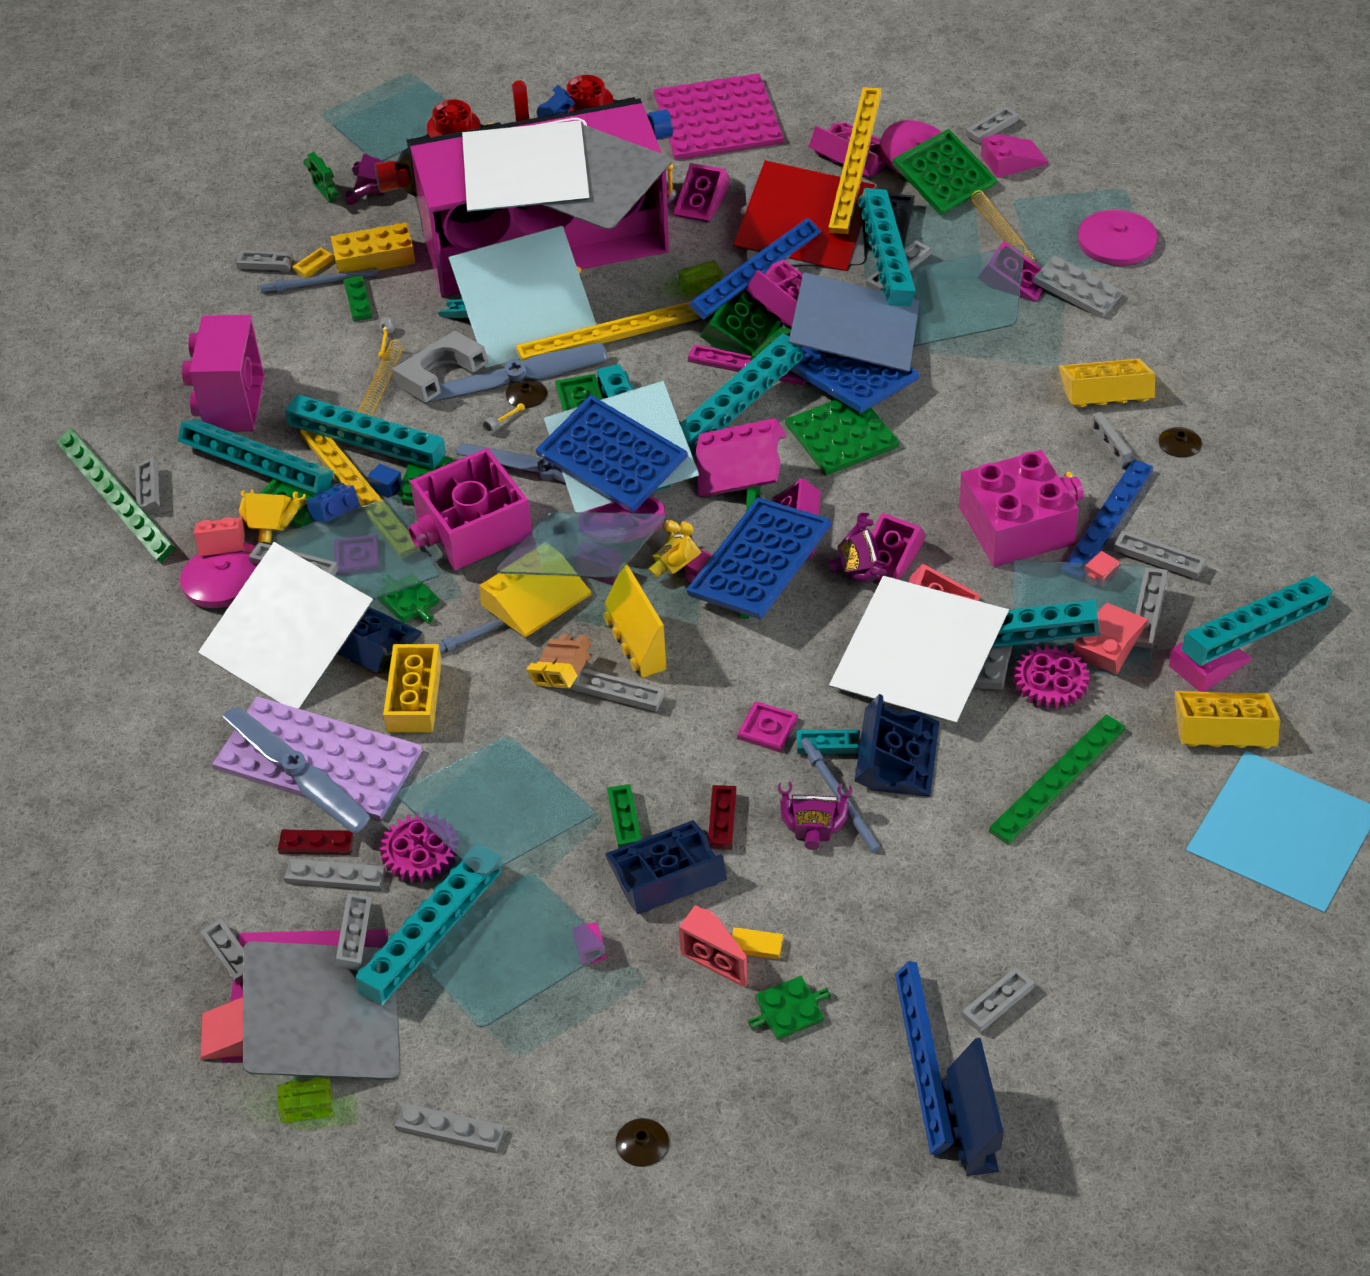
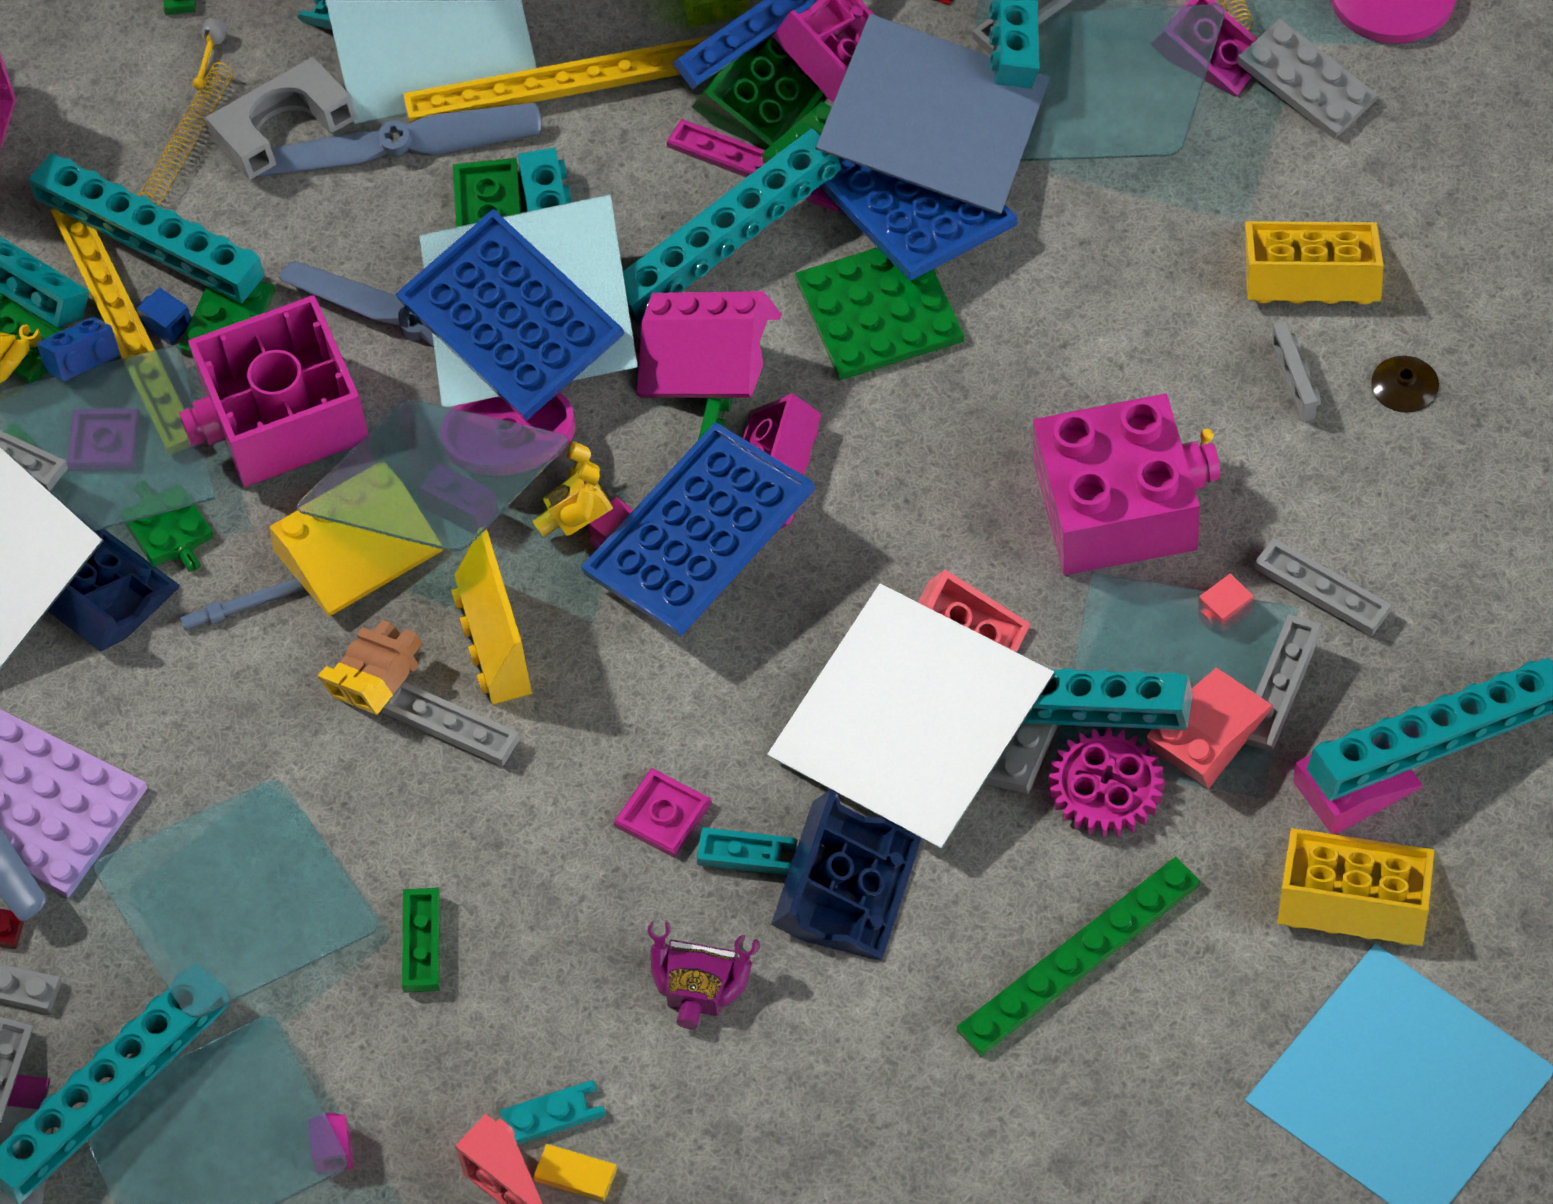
camera: 10 degrees right, 10 degrees up
(412, 688) = (146, 686): yellow brick -> none
(412, 843) = (88, 974): dark pink gear -> none
(492, 424) = (344, 231): light grey hinge -> none
(527, 392) = (411, 186): dark brown dish -> none
(666, 867) = (466, 1031): dark blue piece -> none
(722, 817) = (564, 959): dark red plate -> none
(738, 907) = (552, 1113): none -> teal hinge
(817, 760) = (721, 883): sand blue bar -> none
(859, 553) = (856, 536): magenta torso -> none
(897, 544) = (906, 531): dark pink slope -> none
(1111, 512) = (1265, 503): blue plate -> none

